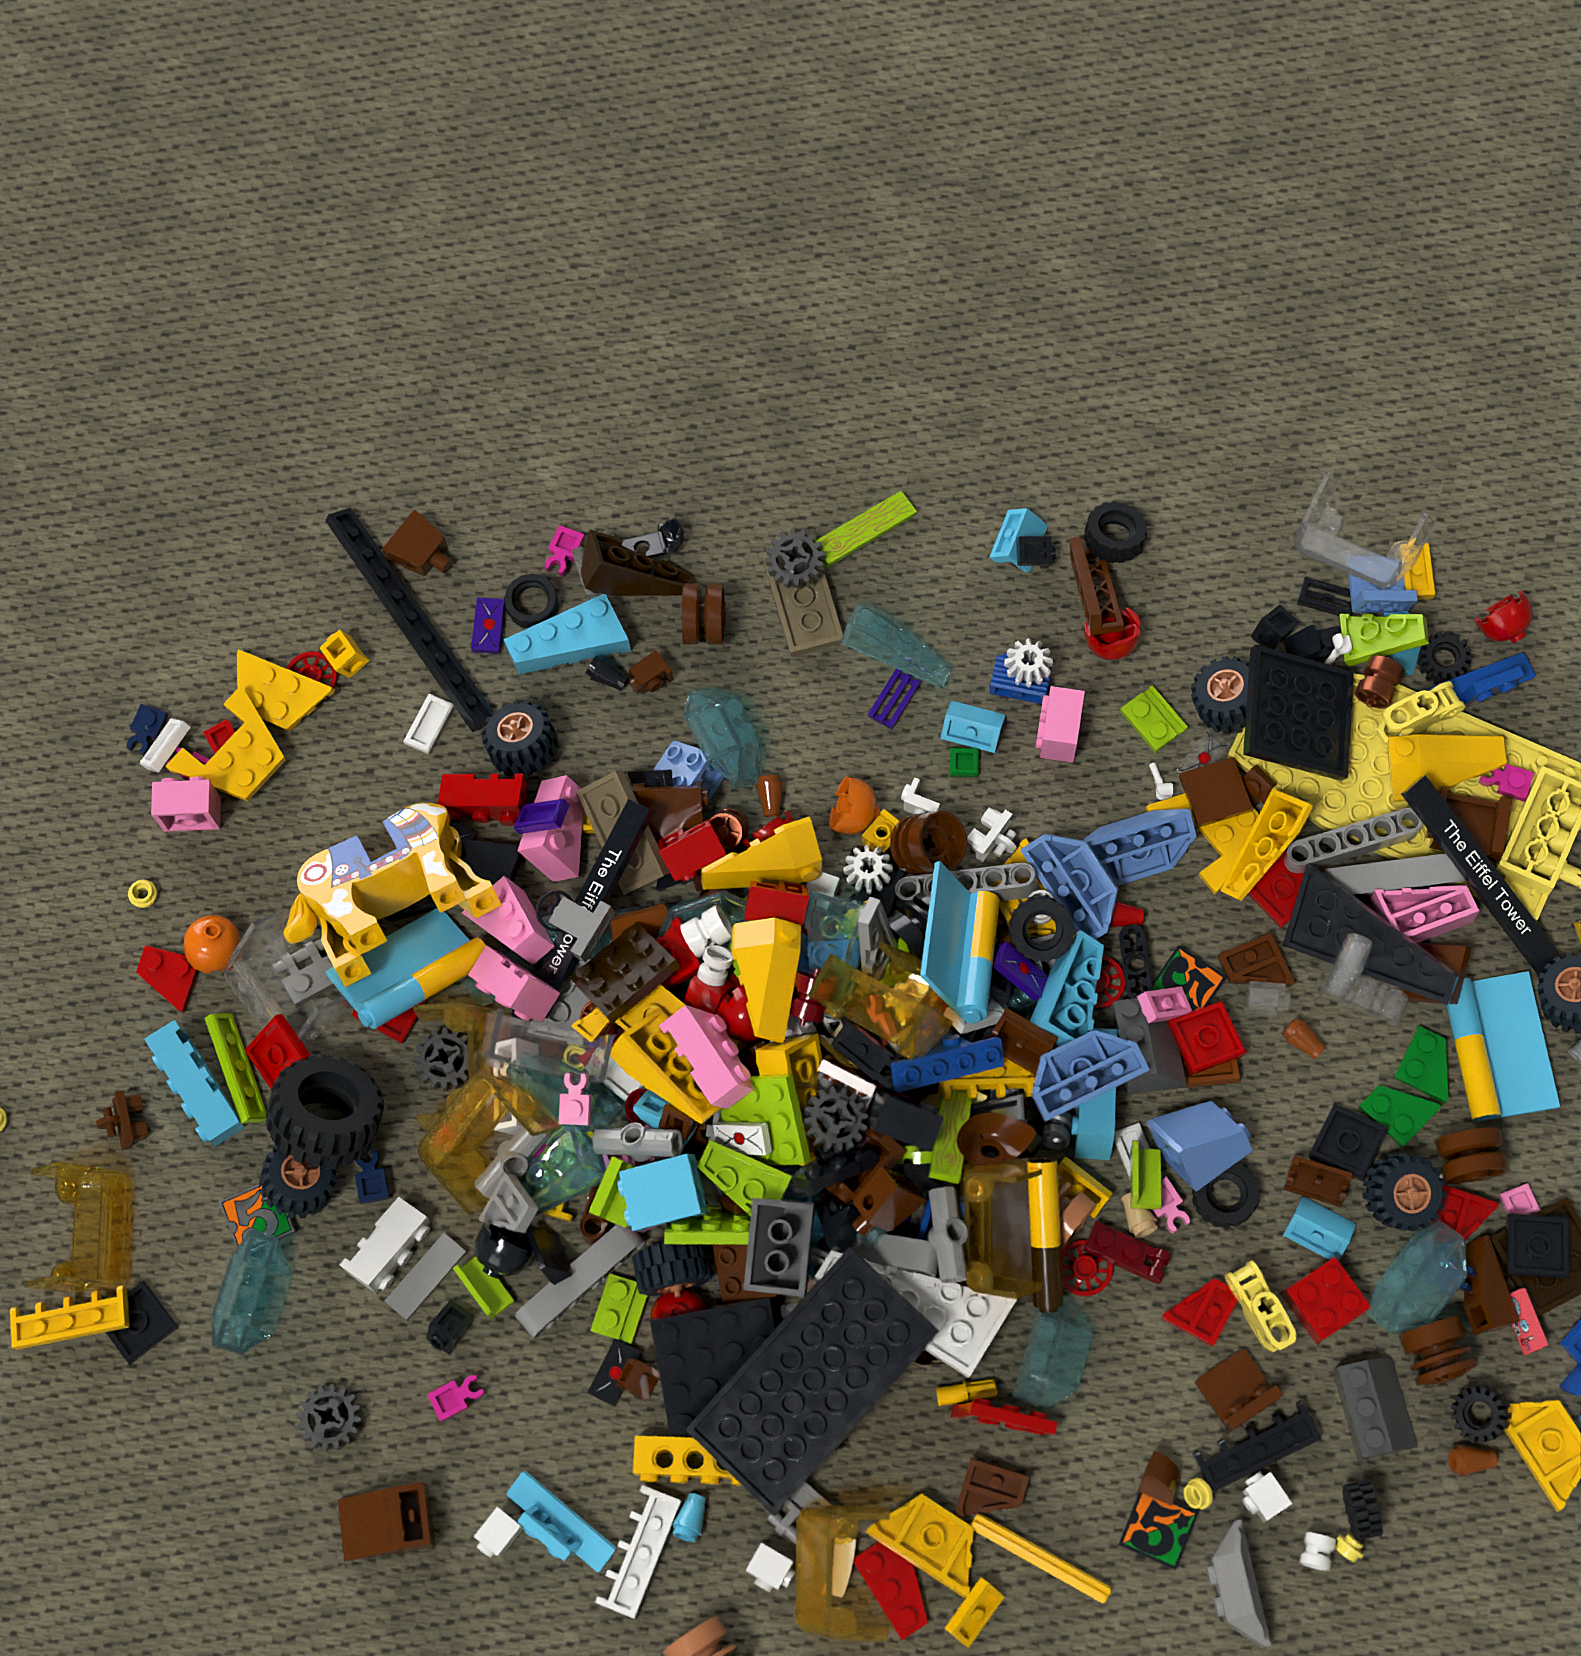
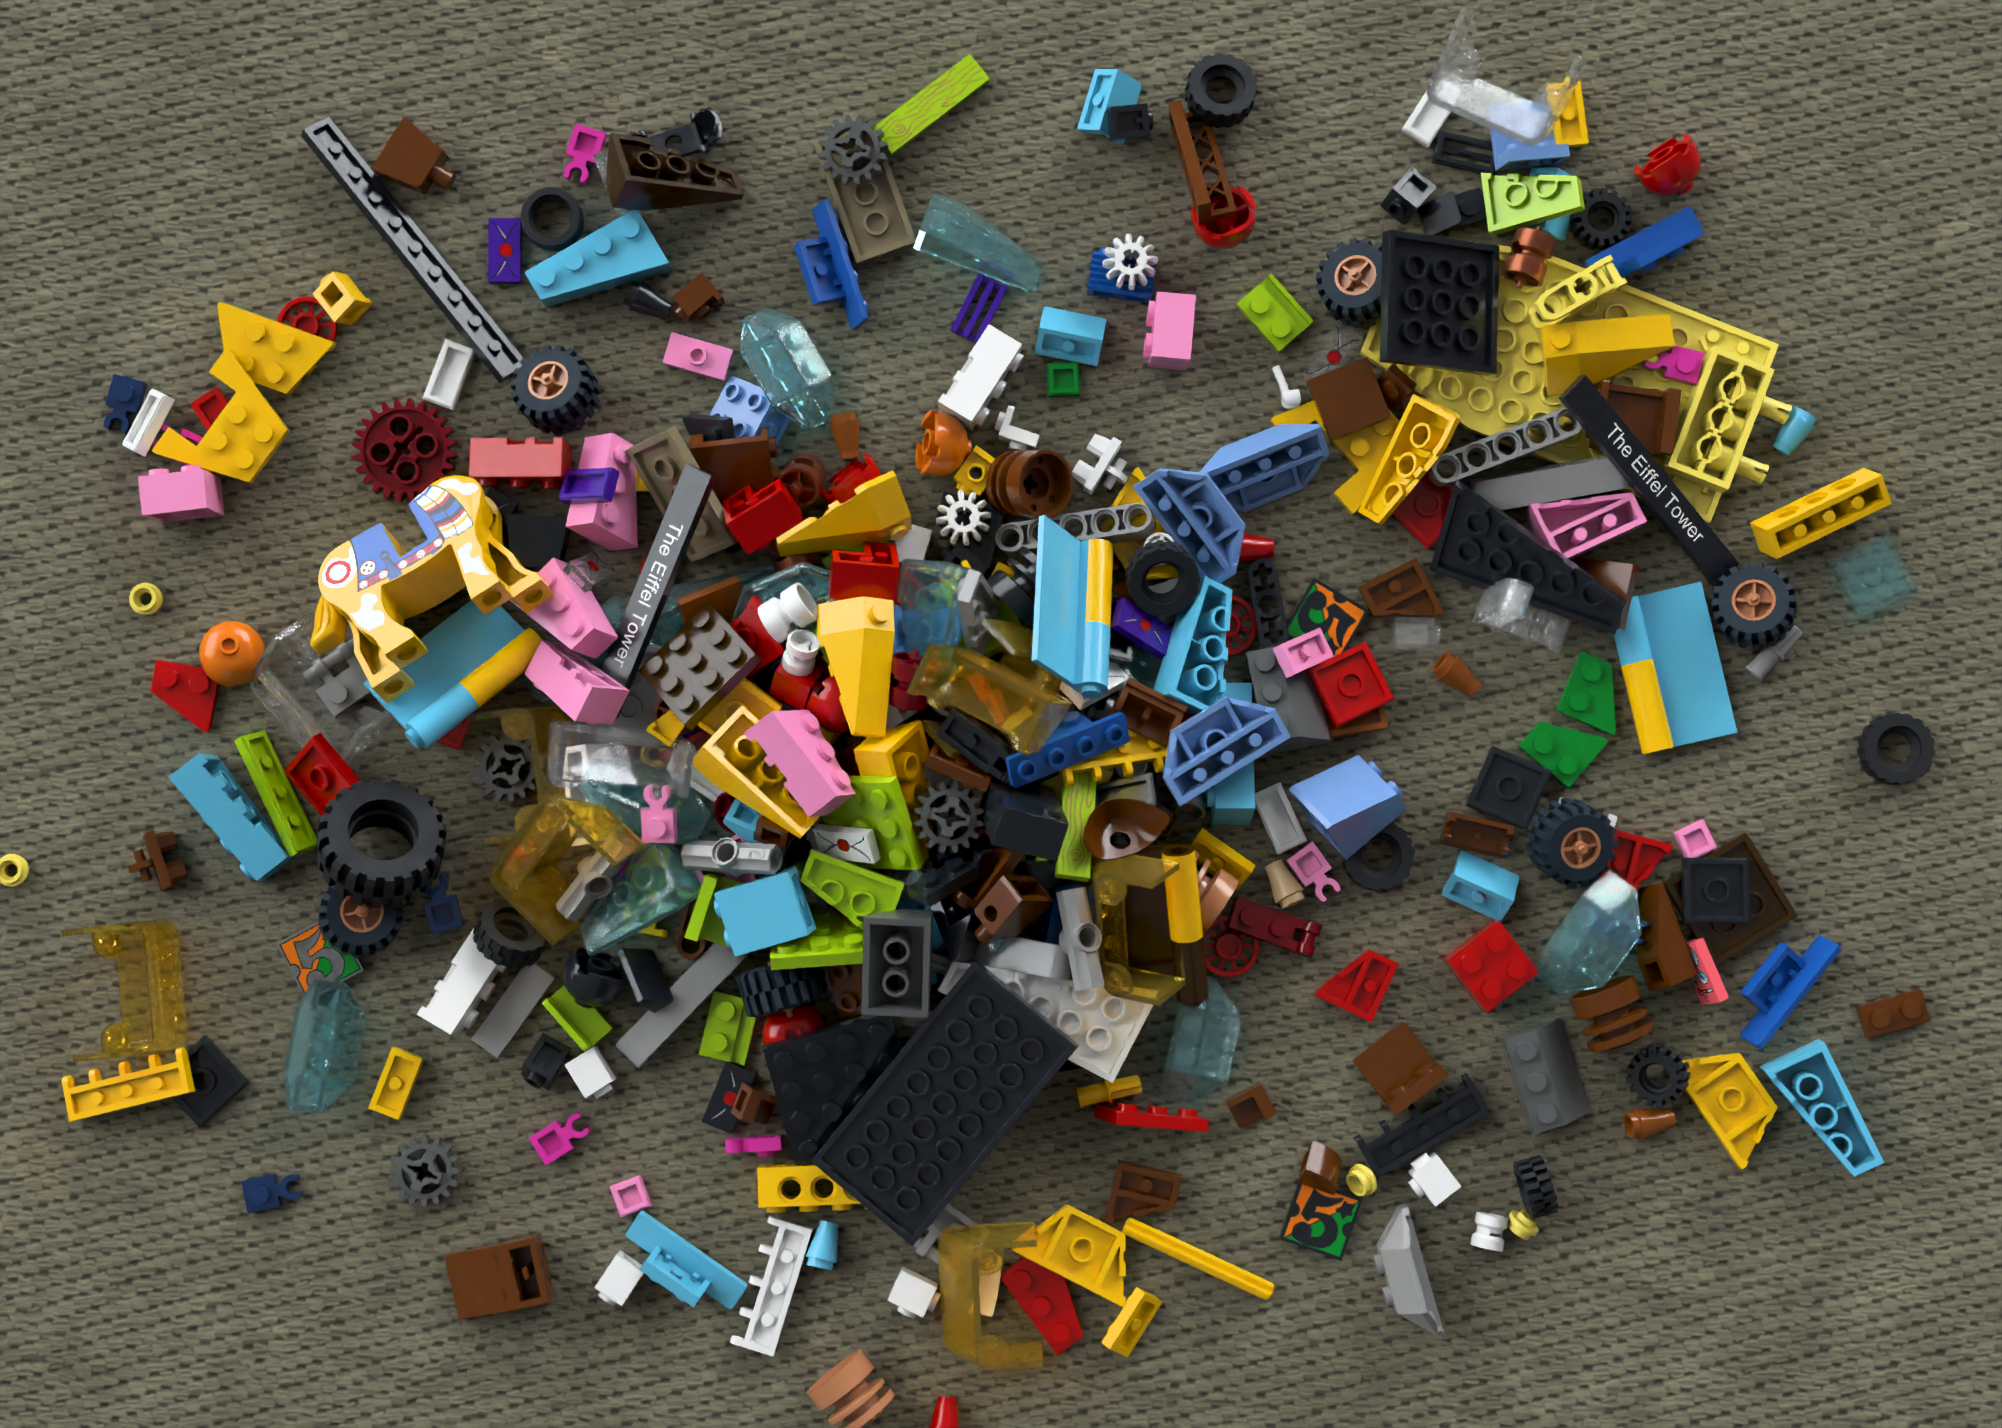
camera: 10 degrees left, 15 degrees up
(180, 1428) = (266, 1192): none -> dark blue plate
(312, 1335) = (396, 1083): none -> yellow plate
(365, 769) = (381, 433): none -> dark red gear
(423, 1214) = (501, 949): none -> black tyre
(490, 1339) = (591, 1073): none -> white brick
(509, 1205) = (597, 933): light grey wing -> none
(515, 1457) = (630, 1195): none -> bright pink tile
(531, 891) = (590, 571): none -> clear tile
(576, 921) = (638, 611): light grey piece -> none
(641, 1417) = (763, 1145): none -> dark pink plate
(646, 723) = (698, 357): none -> bright pink plate
(705, 614) = (752, 225): reddish brown wheel -> none
(766, 655) = (828, 267): none -> blue bracket
(892, 753) = (981, 377): none -> white wedge
(1097, 1416) = (1250, 1105): none -> reddish brown panel
(1145, 1177) = (1290, 846): lime panel -> none
(1250, 1297) = (1410, 965): light yellow piece -> none
(1293, 569) = (1425, 121): none -> white tile
(1341, 646) = (1484, 214): white hand -> none
(1472, 1155) = (1644, 798): reddish brown wheel -> none

